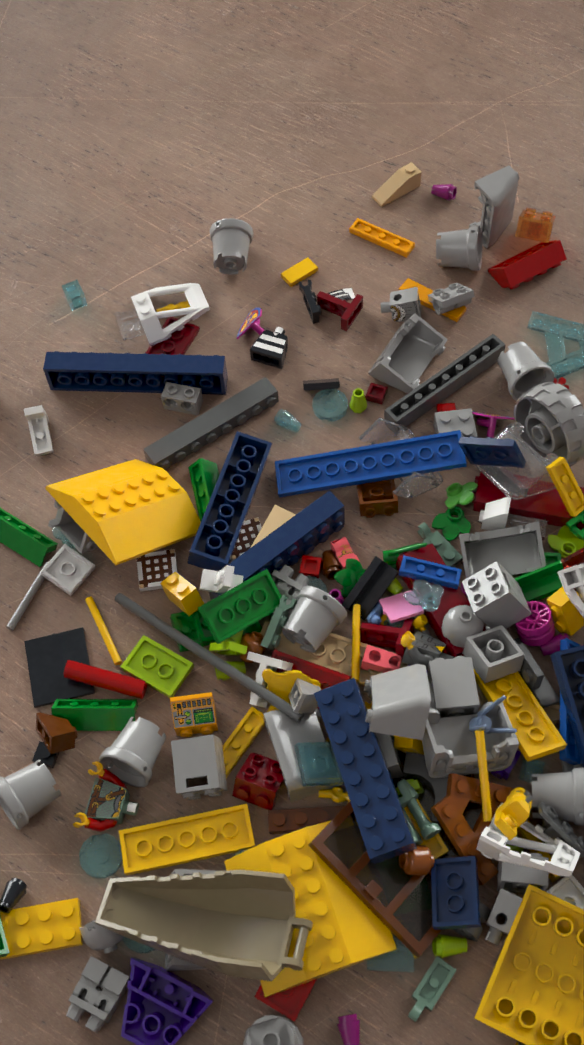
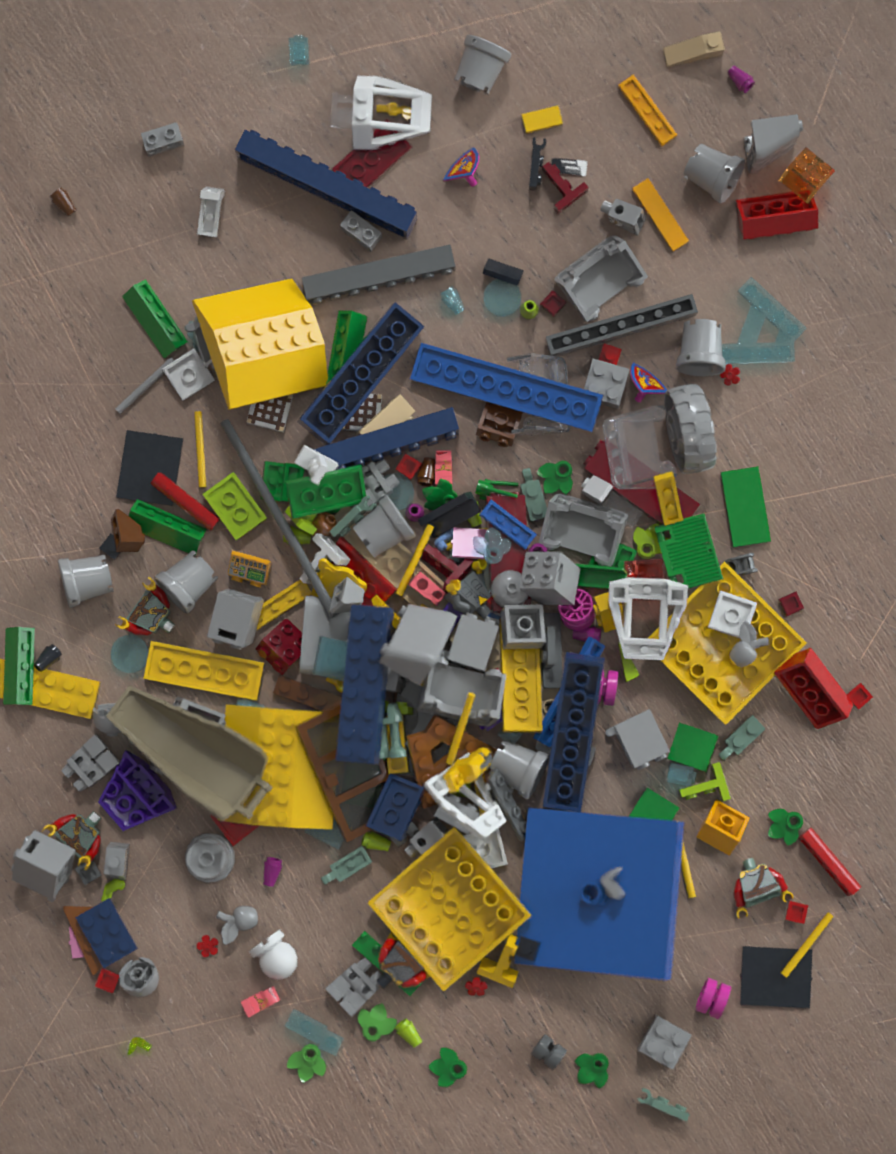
camera: 20 degrees right, 25 degrees up
(182, 593) = (281, 447): yellow brick -> none
(270, 348) = (472, 206): black torso -> none
(417, 861) = (377, 773): dark orange head -> none
(450, 298) = (675, 227): light grey plate -> none
(460, 494) = (576, 453): bright green plate -> none
(484, 723) = (479, 685): sand blue plant -> none
(492, 452) = (617, 435): dark blue plate -> none

